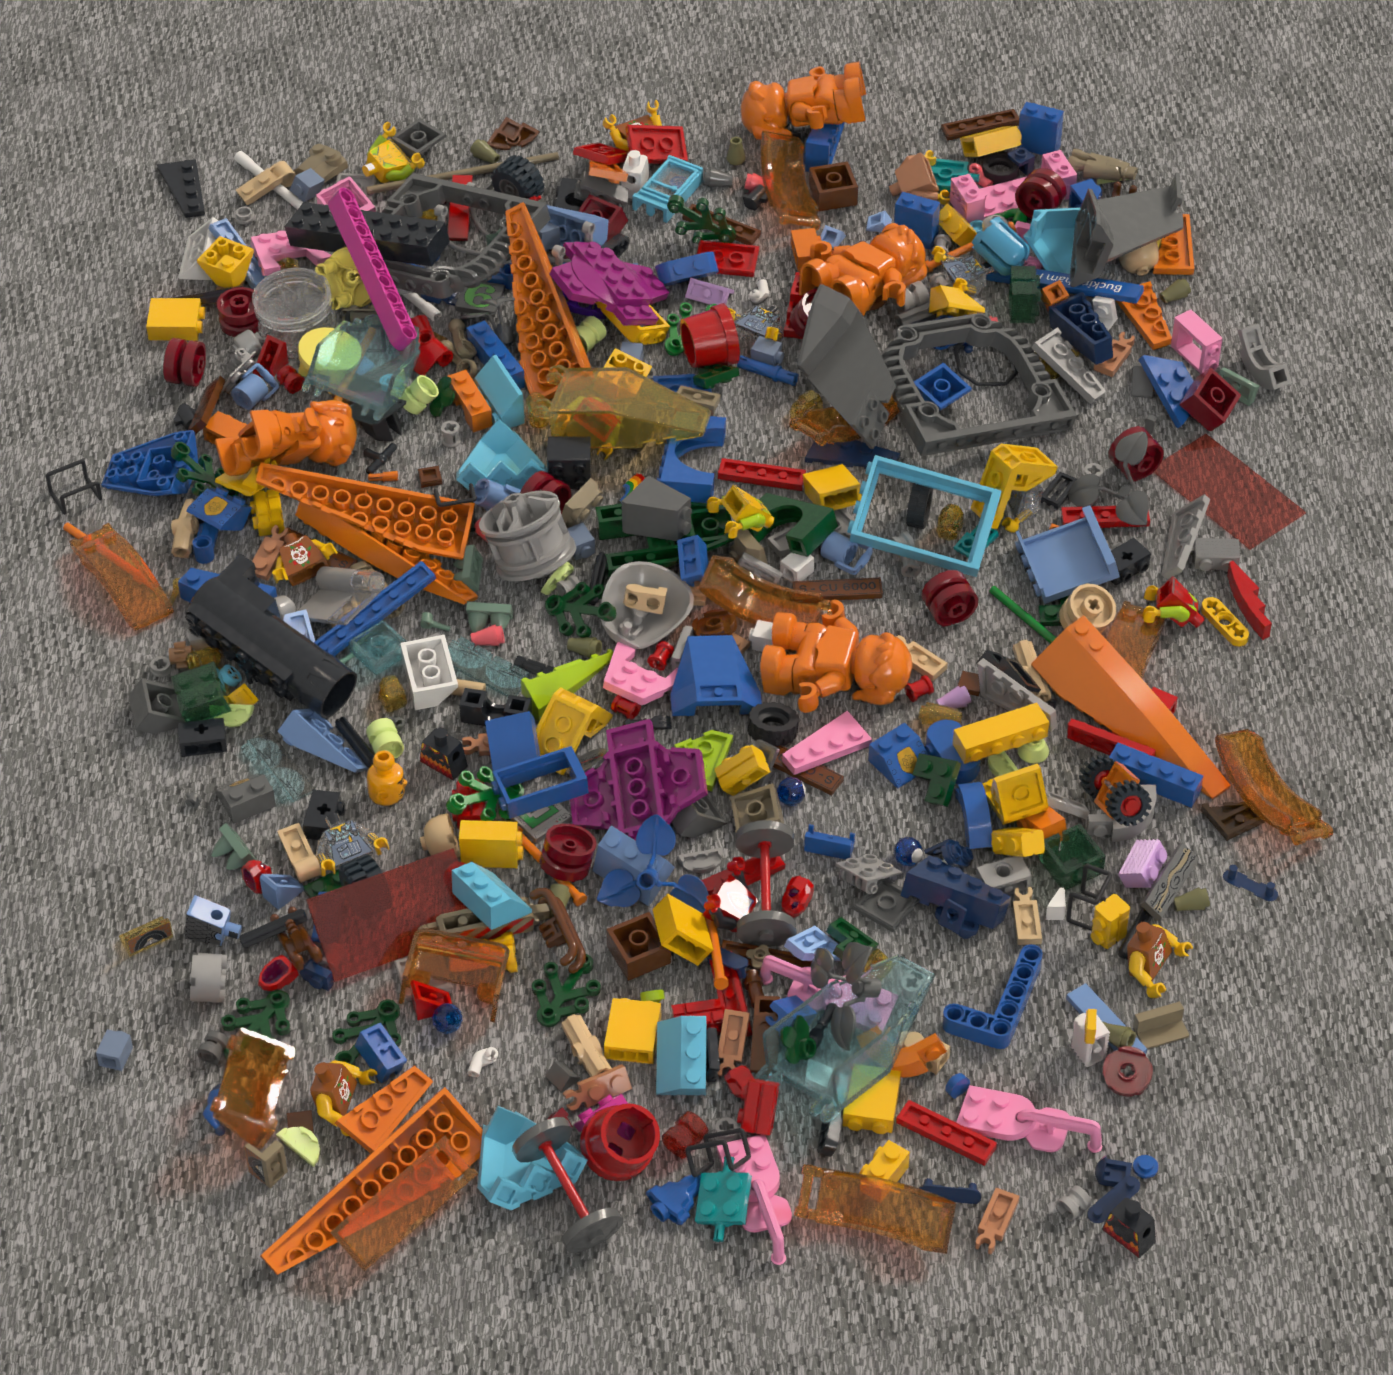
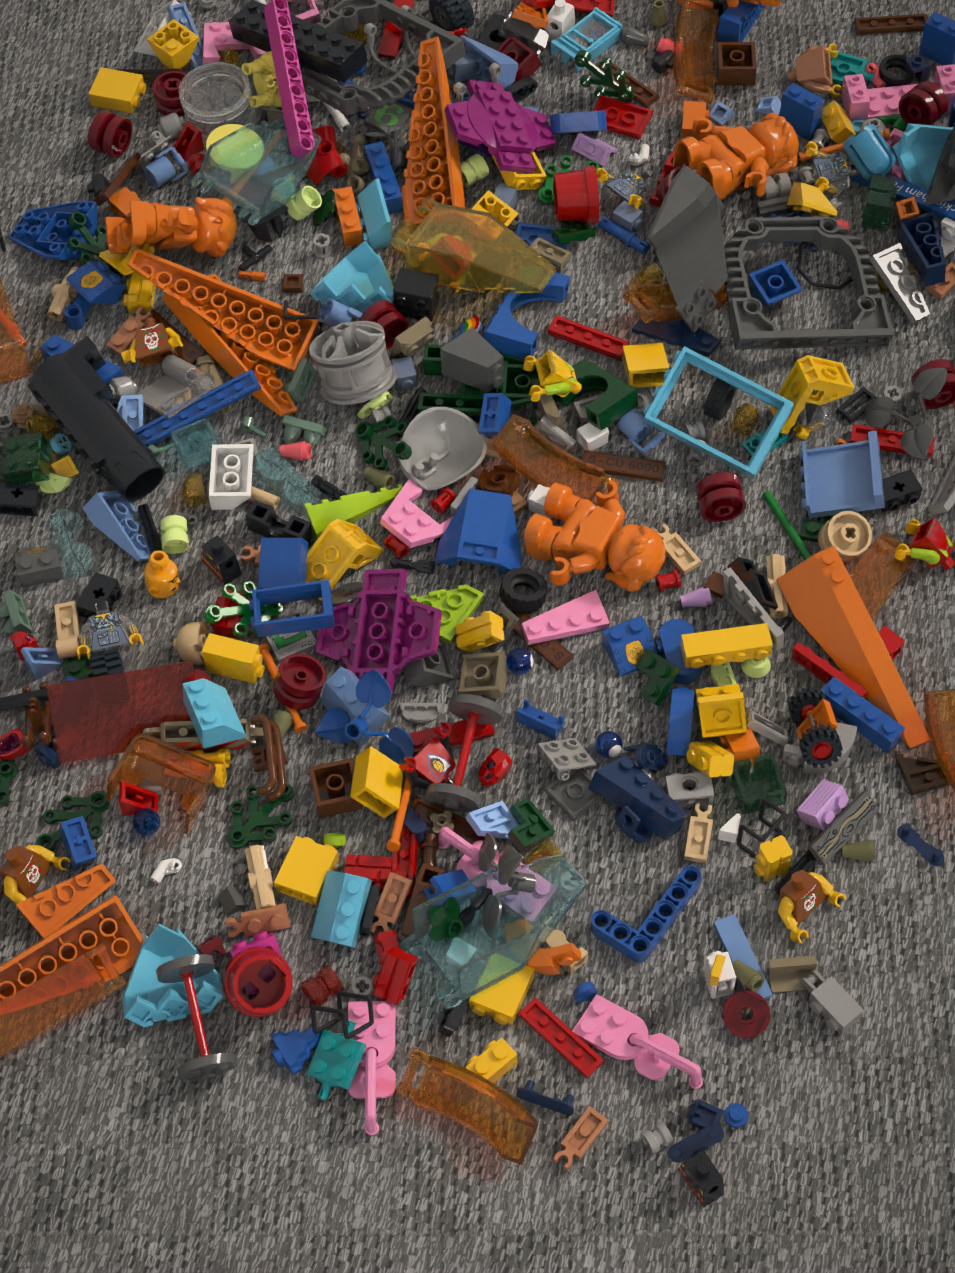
camera: 15 degrees right, 10 degrees up
(645, 598) = (443, 443): tan leg -> none
(935, 712) = (675, 609): clear yellow head -> none
(991, 141) = (894, 44): yellow brick -> none
(1209, 1043) = (832, 1002): none -> light grey brick

